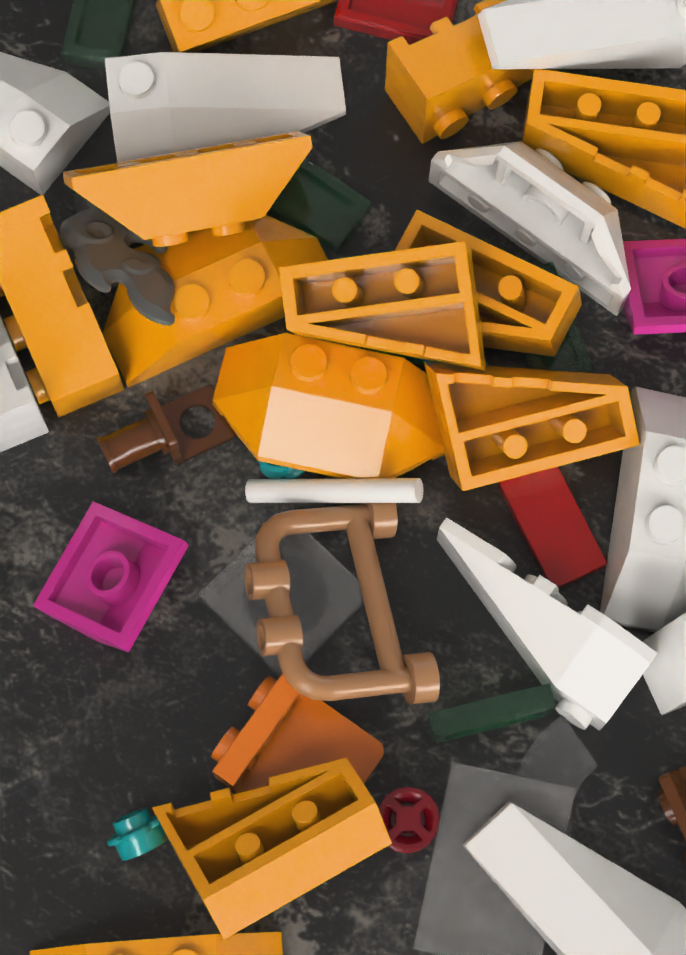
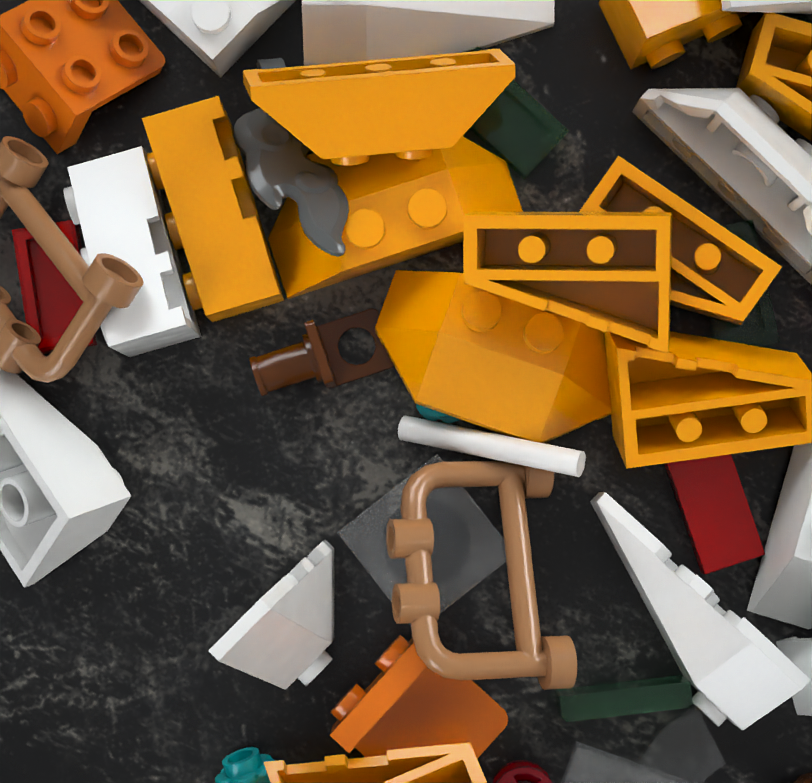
camera: 10 degrees right, 10 degrees up
(110, 576) = (248, 504): dark pink slope -> none
(157, 669) = (287, 627): none -> white wedge

